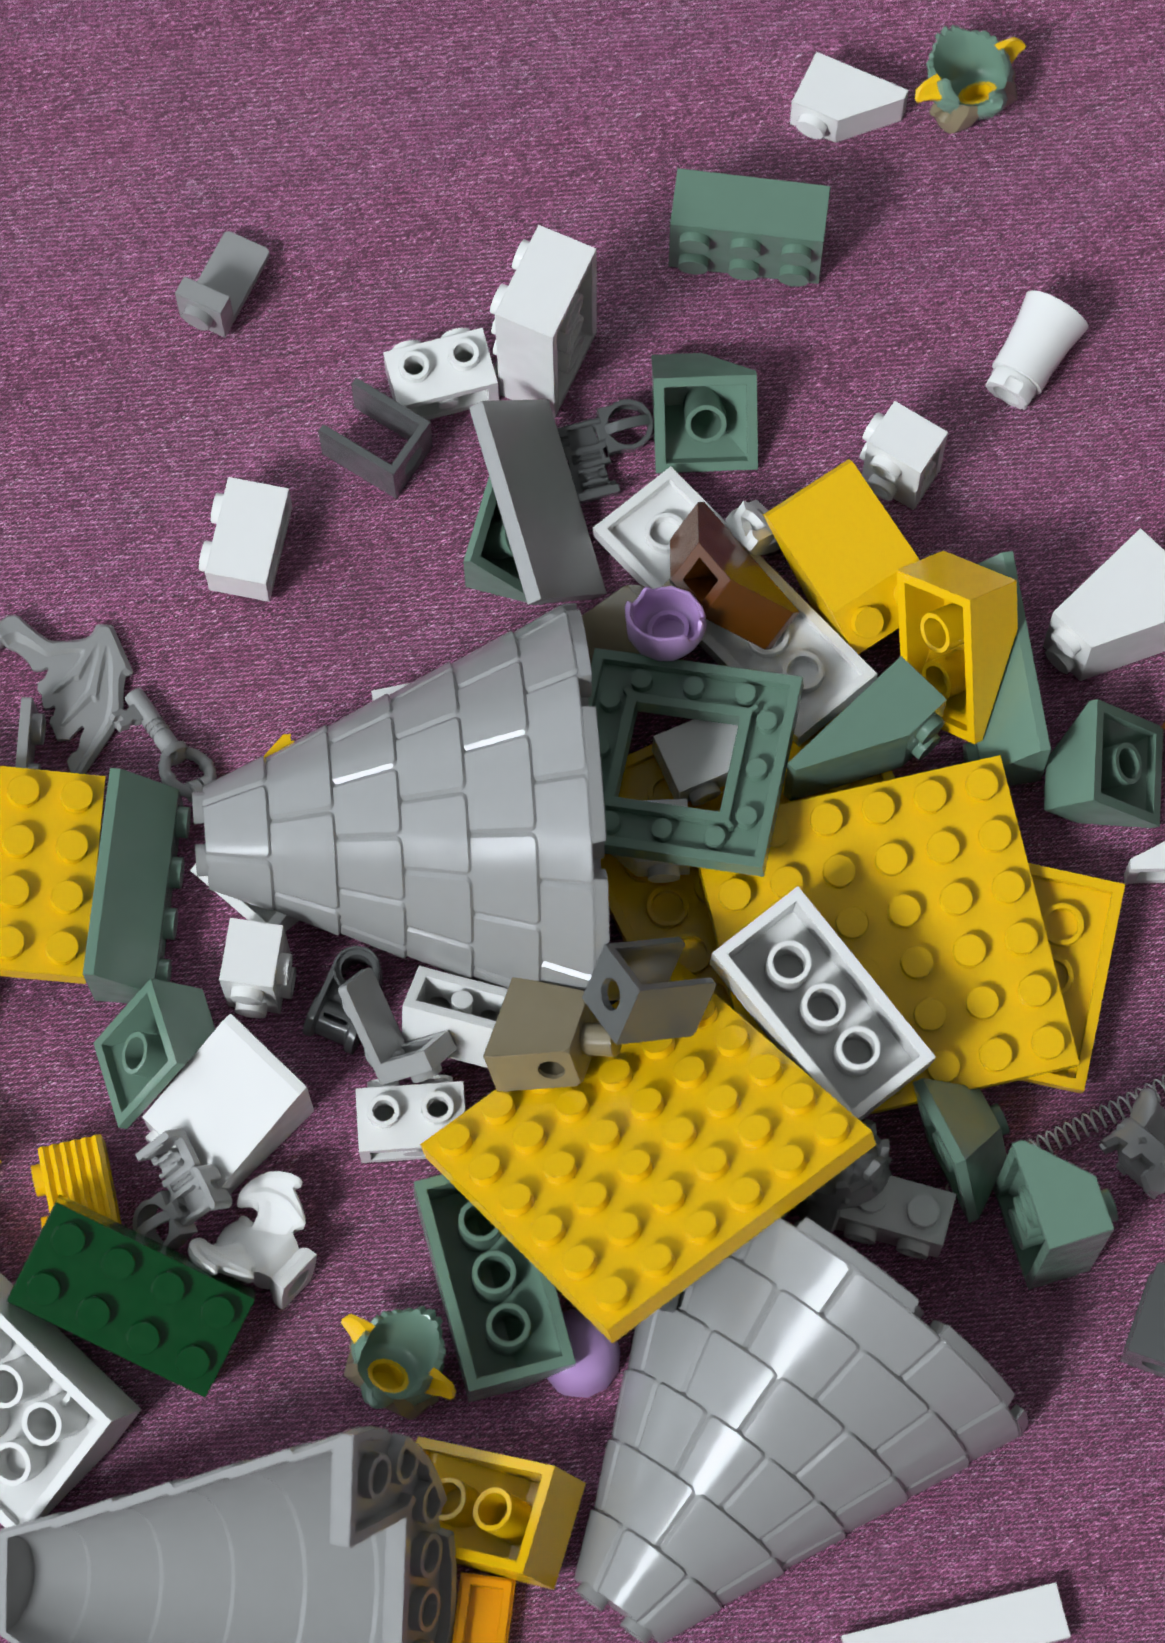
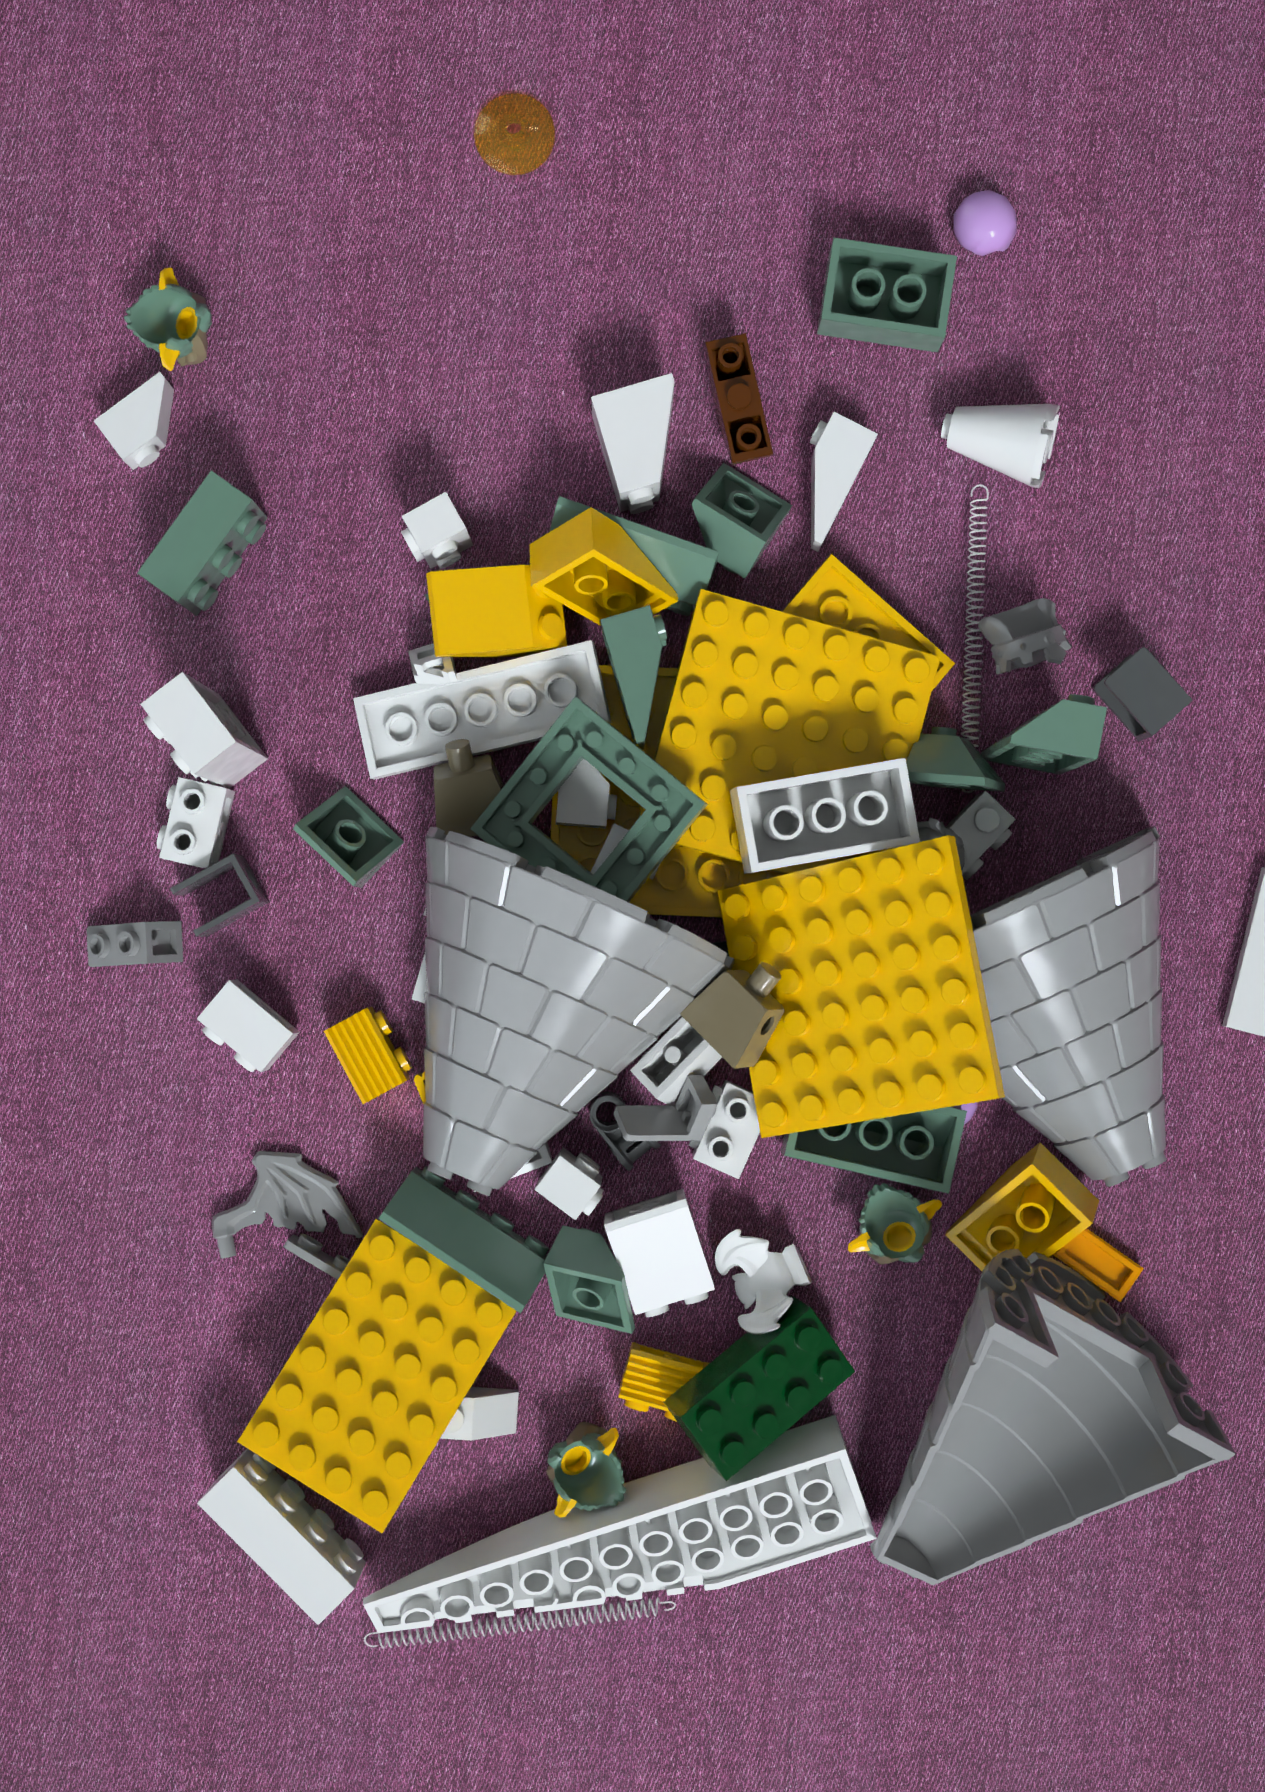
camera: 60 degrees left, 15 degrees up
(172, 751) = (376, 1156): light grey piece -> none
(190, 1190) = (706, 1312): light grey piece -> none
(223, 285) = (40, 943): light grey bracket -> none
(277, 381) = (135, 943): none -> light grey bracket
(285, 682) = (368, 1053): none -> yellow brick
(537, 501) = (332, 808): light grey tile -> none
(587, 454) = (309, 751): dark grey piece -> none
(648, 1002) = (767, 948): dark grey piece -> none
(665, 623) = (482, 770): lavender hair -> none
(703, 414) = (325, 653): sand green slope -> none
(727, 580) = (467, 709): reddish brown slope -> none
(1034, 348) = (404, 393): white plant -> none

